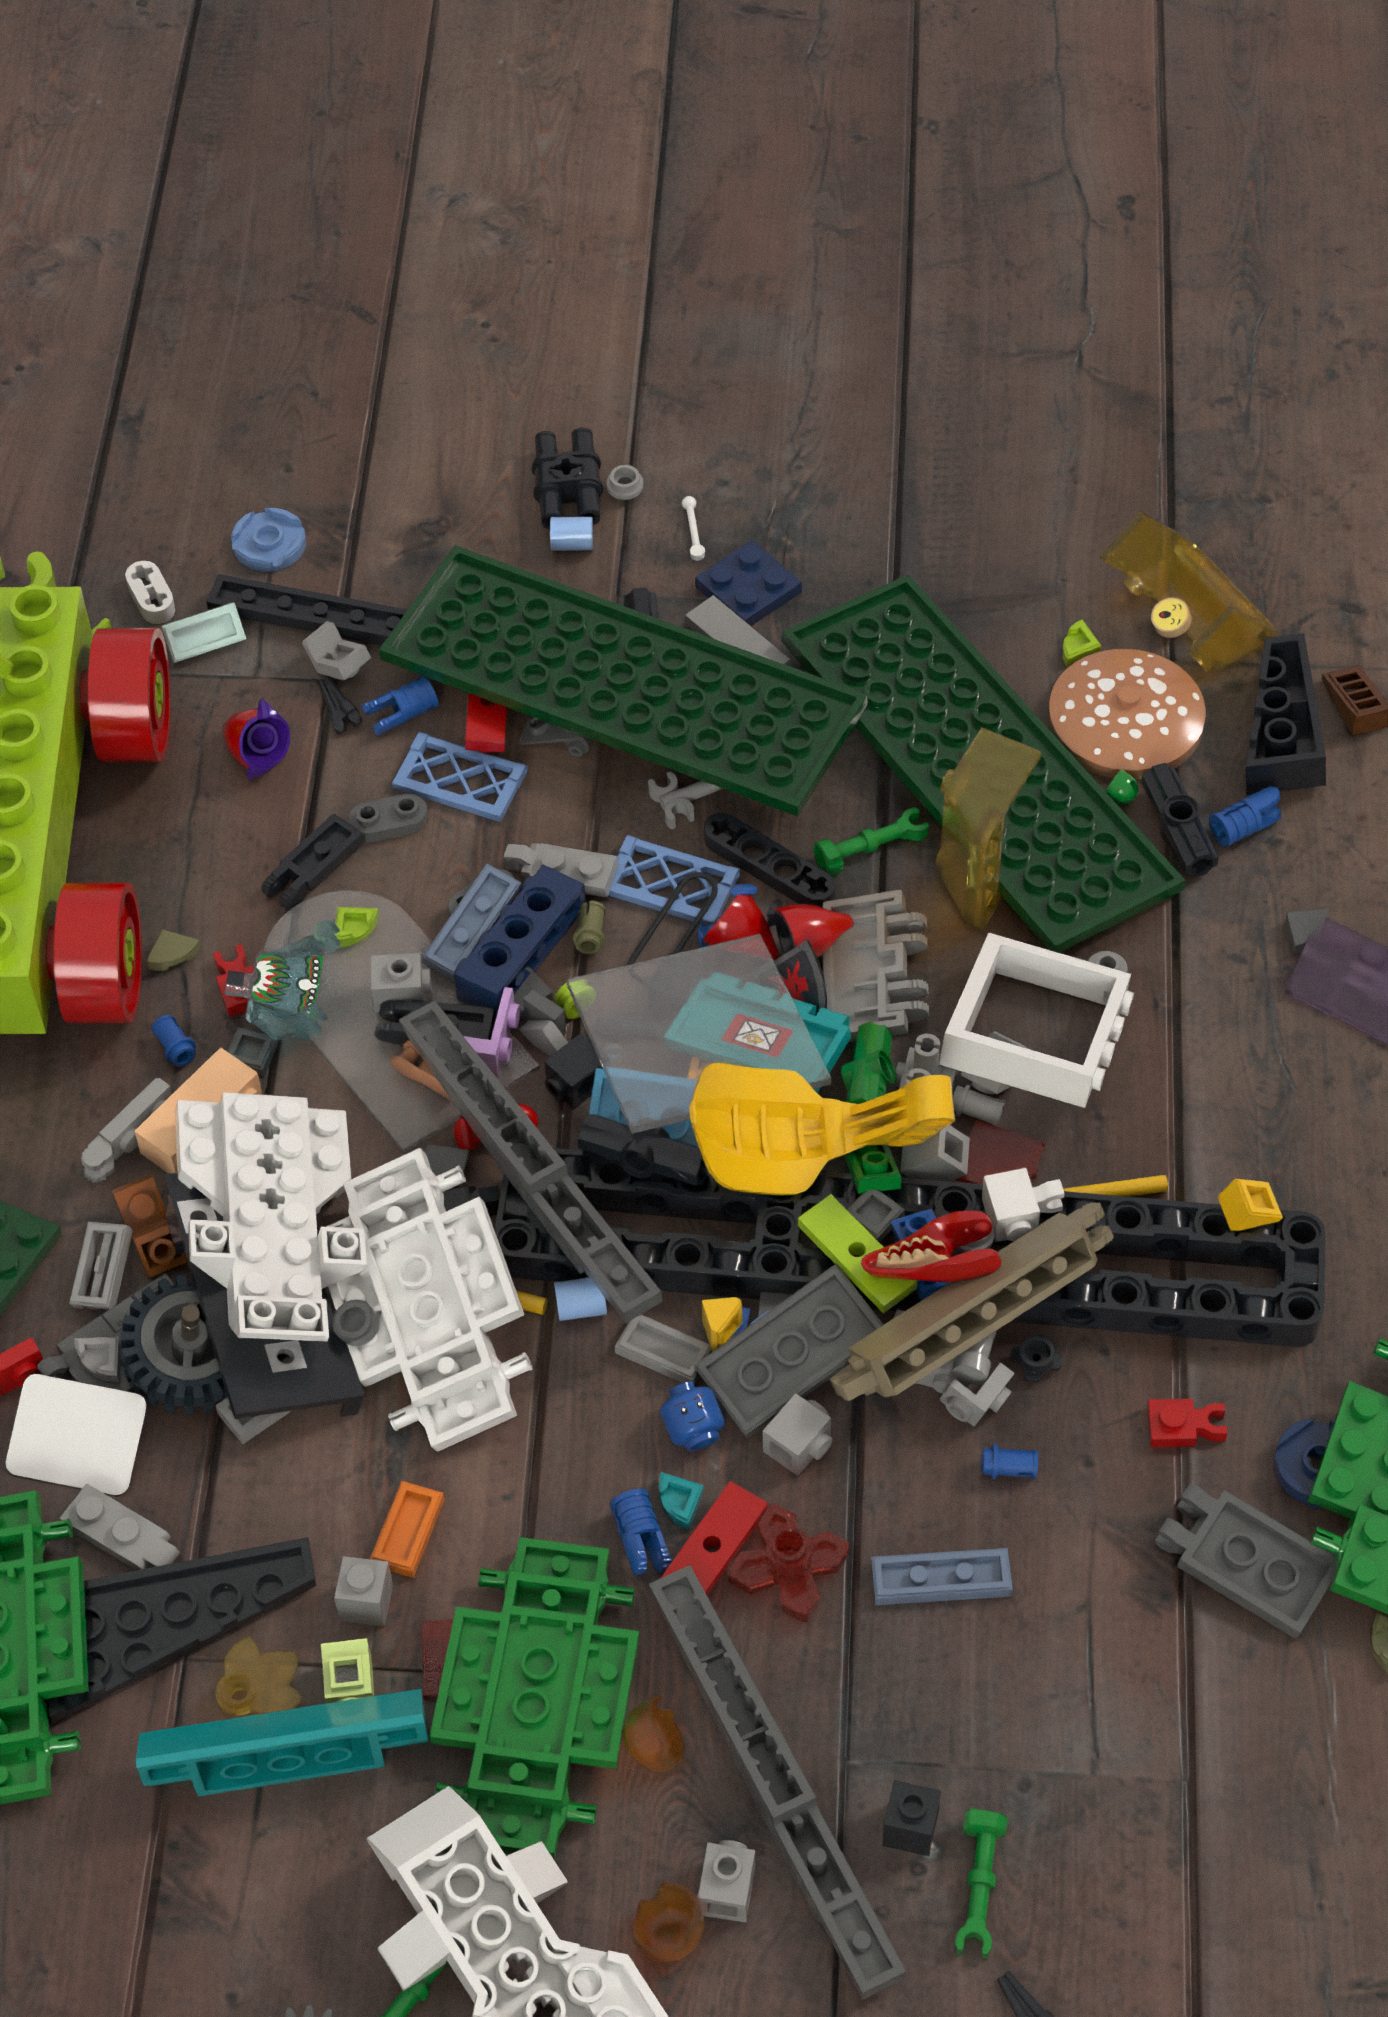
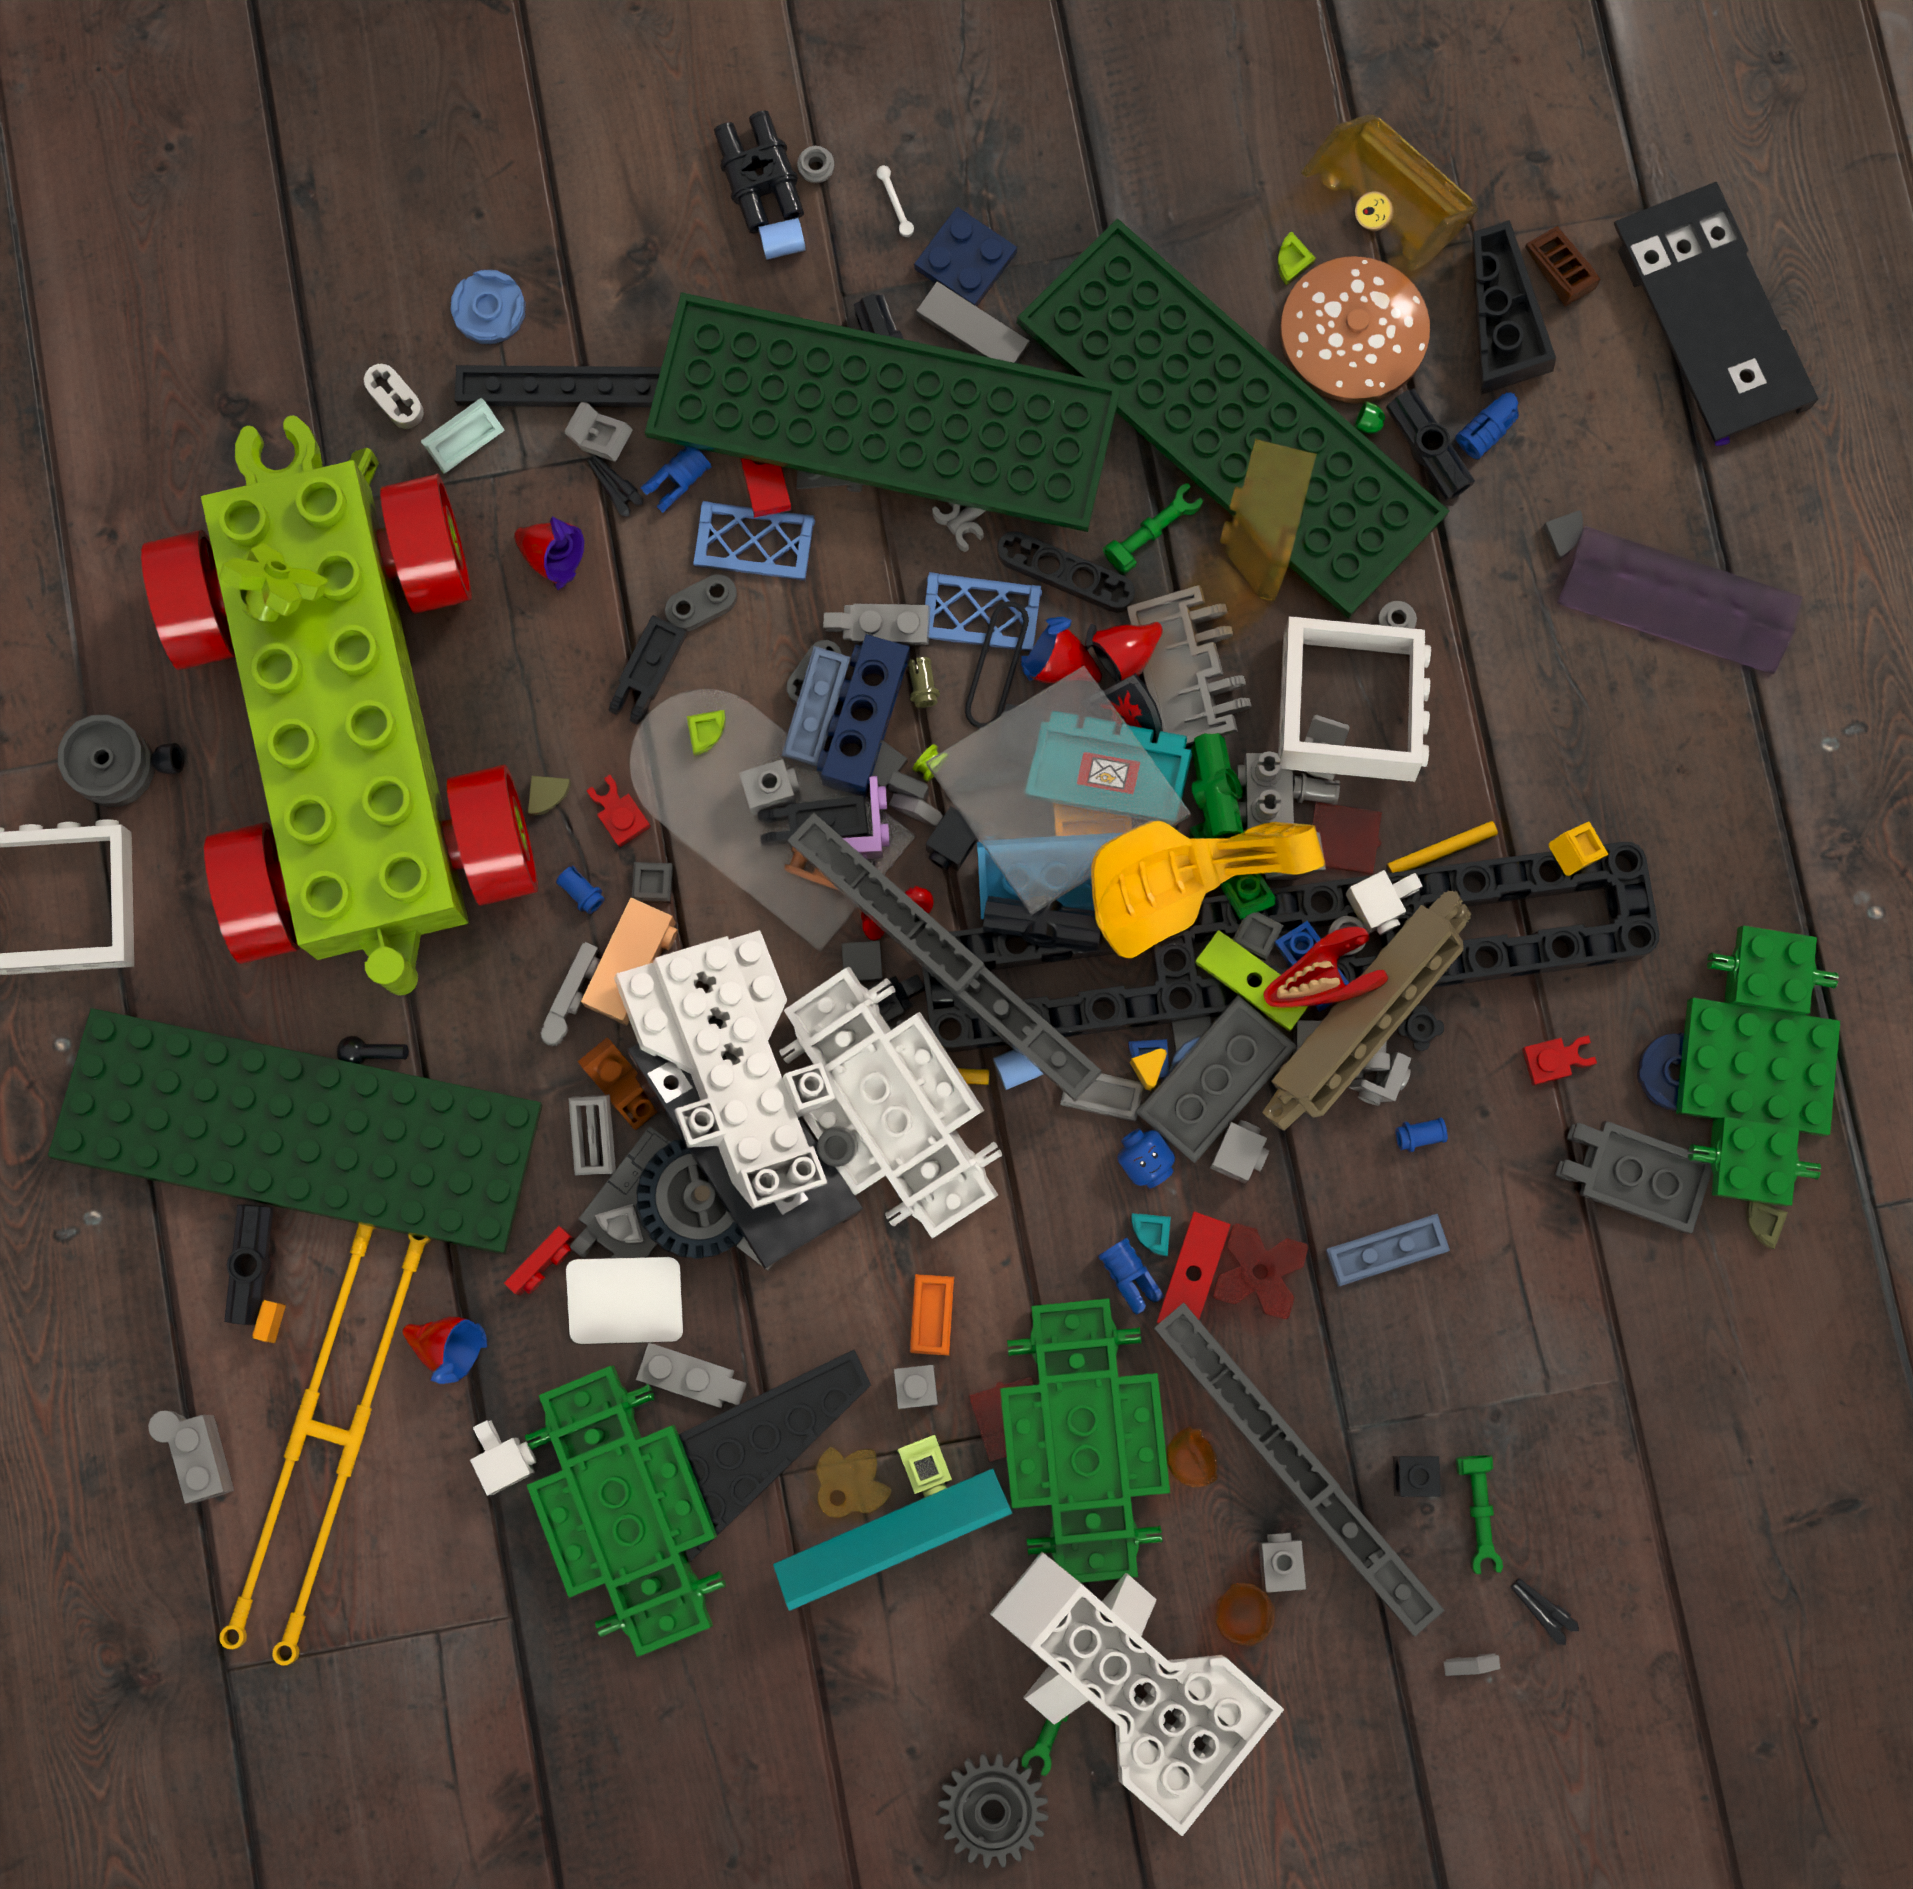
camera: 15 degrees left, 25 degrees up
(286, 986) = (670, 821): clear light blue torso -> none

